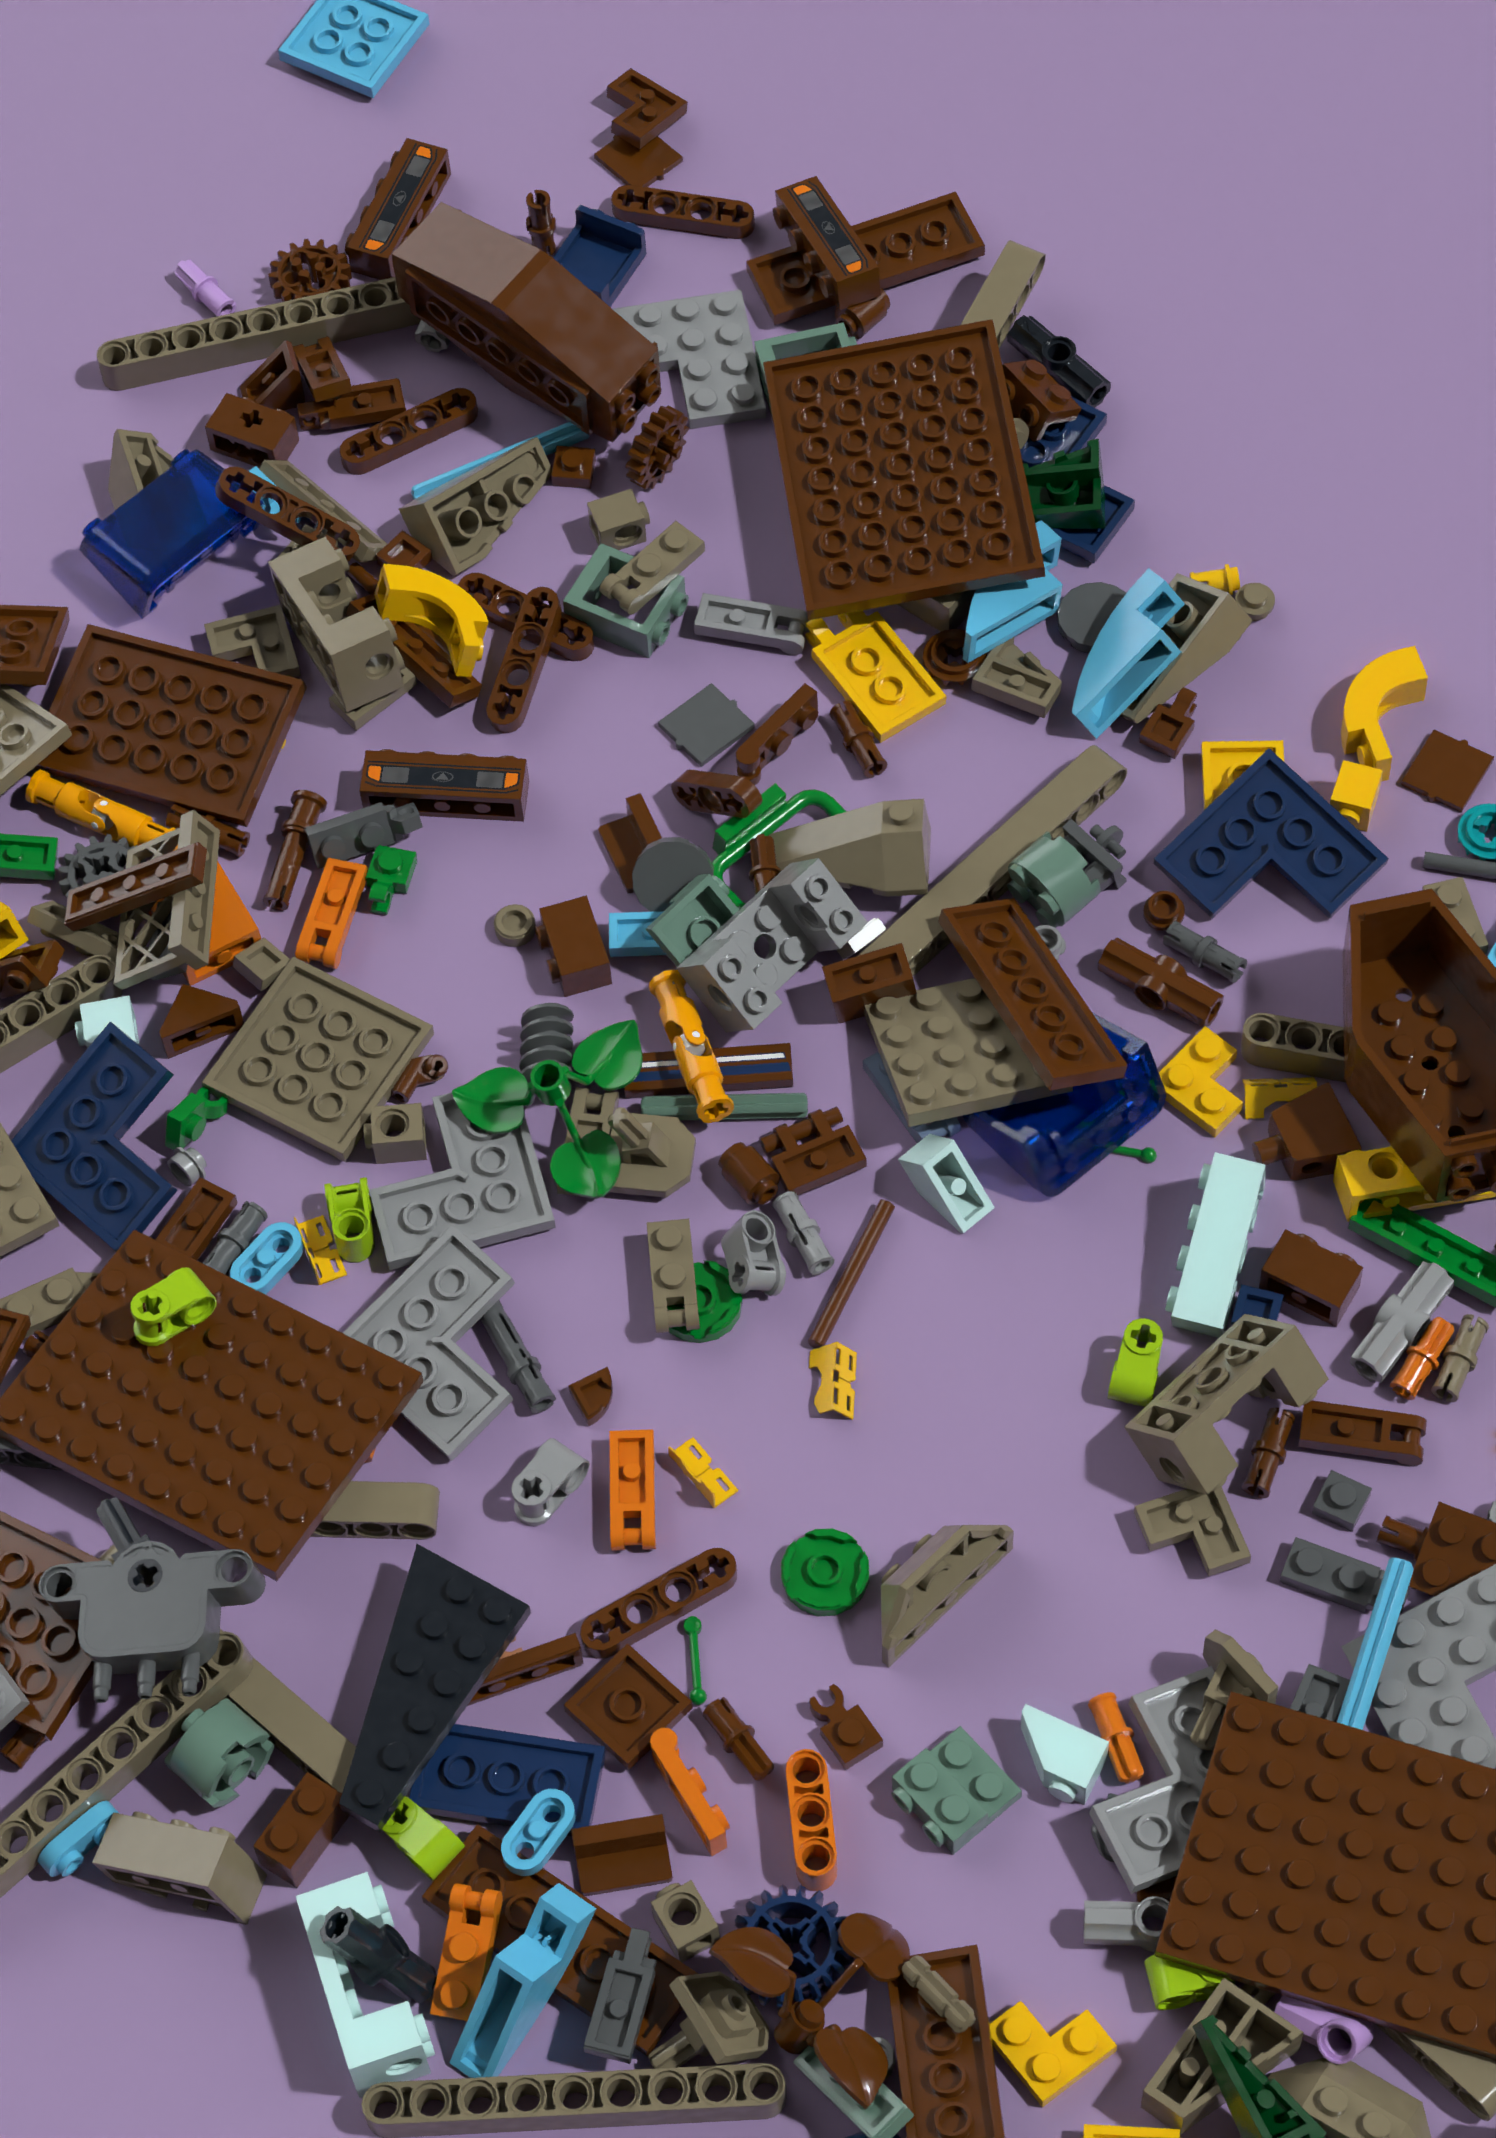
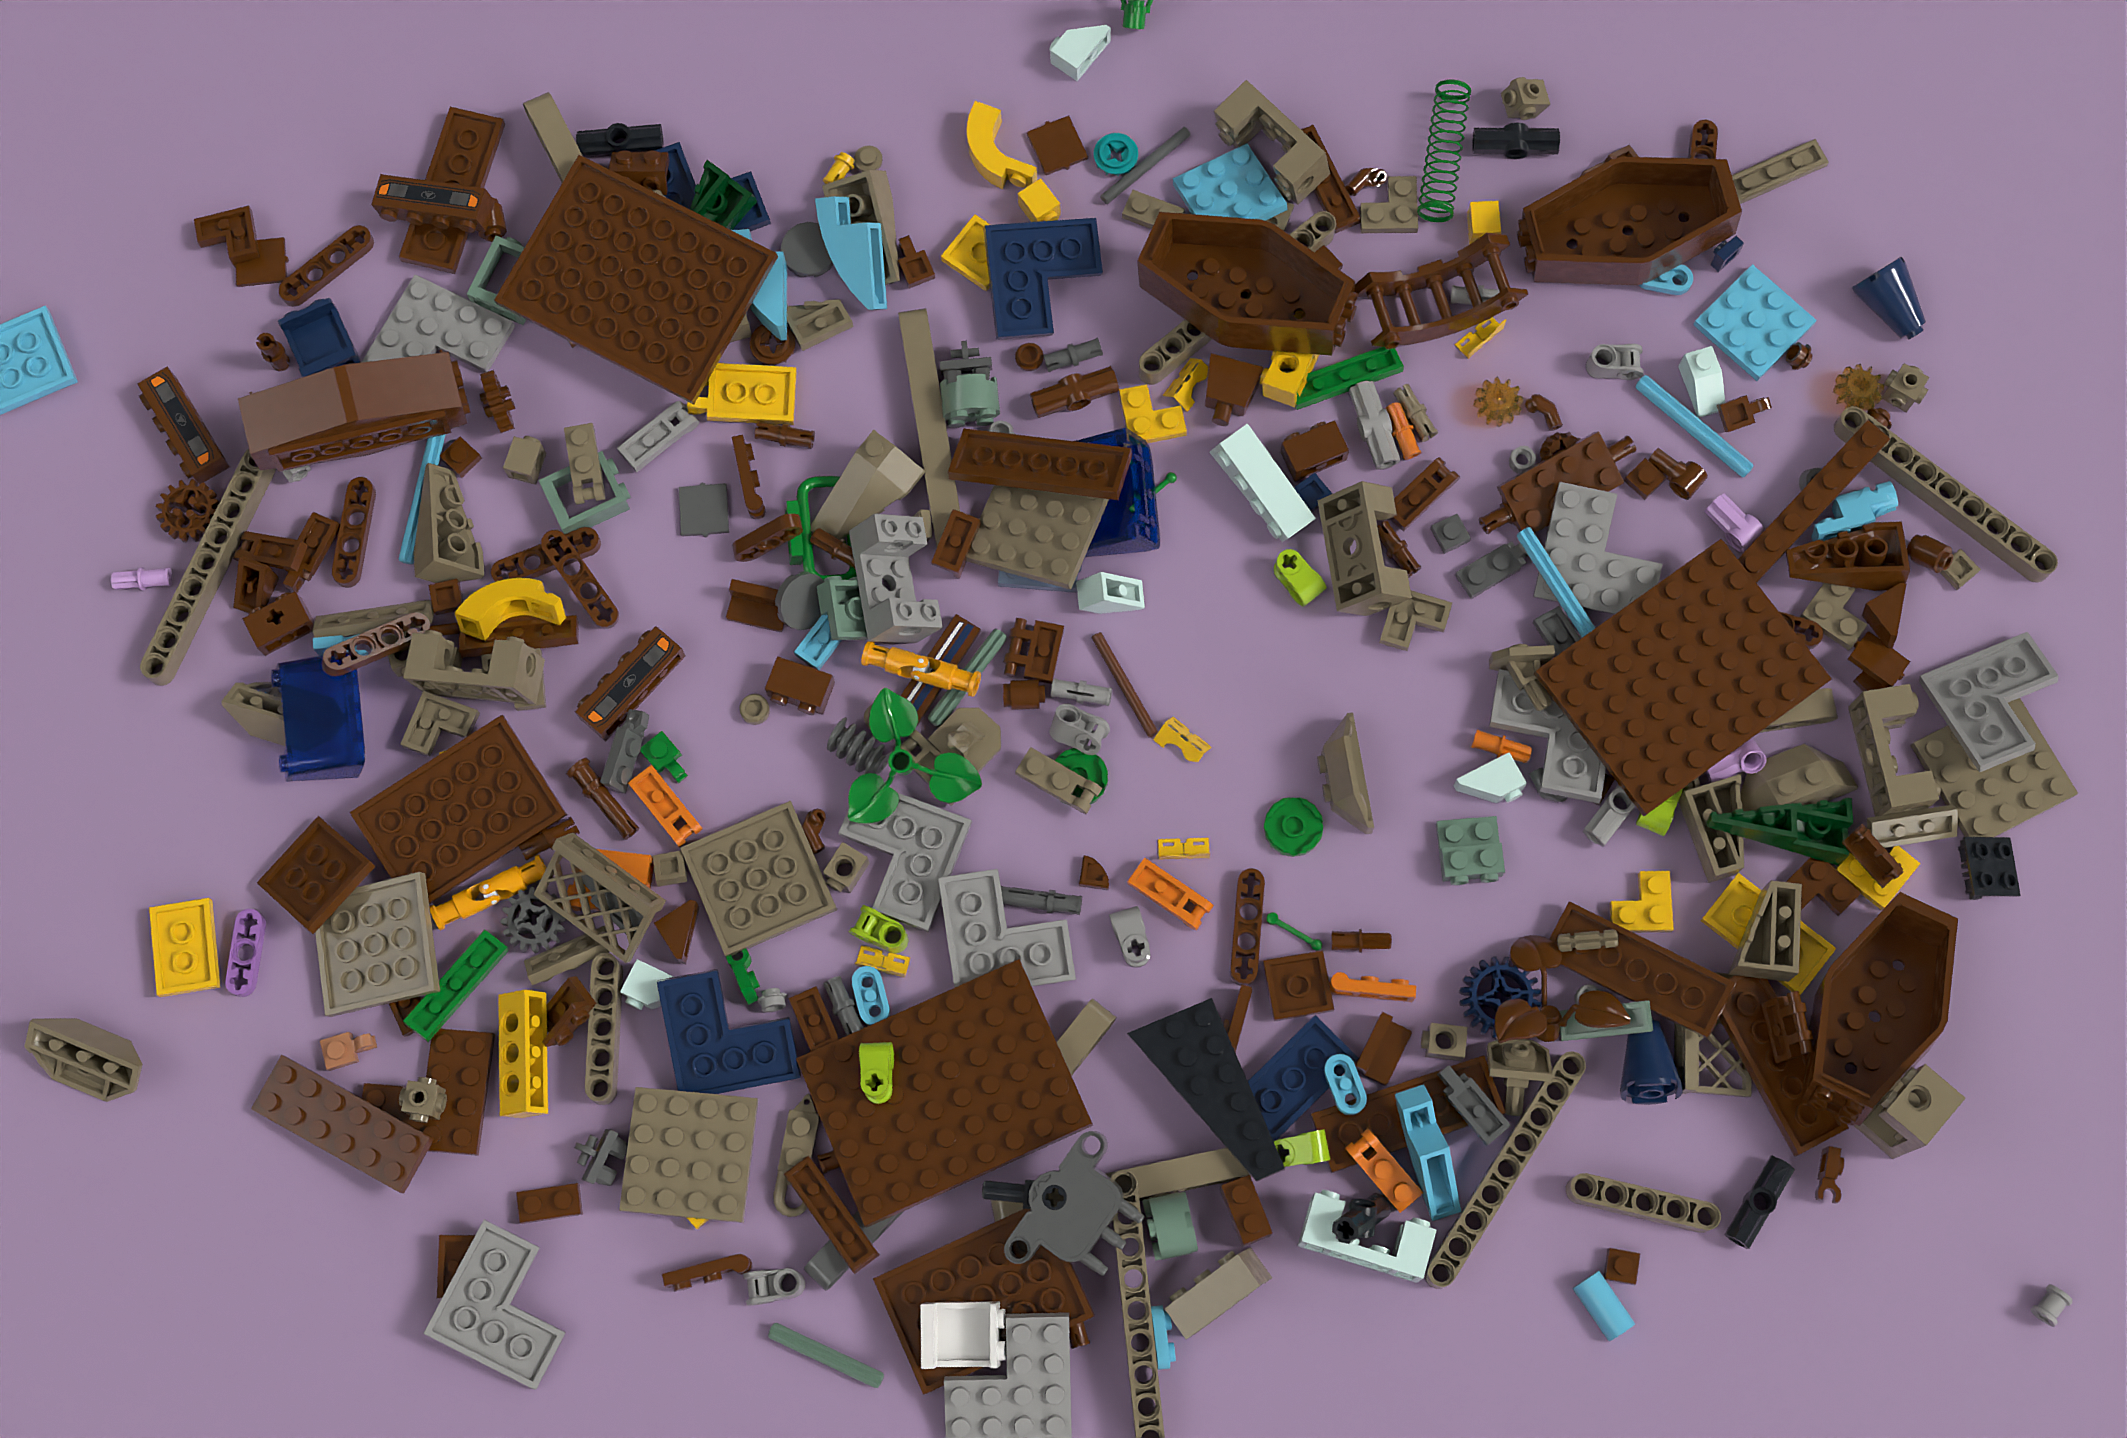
camera: 55 degrees left, 15 degrees up
(135, 886) = (578, 907): reddish brown tile -> none
(811, 1799) = (1451, 935): orange beam -> none
(847, 1732) = (1396, 881): reddish brown plate -> none

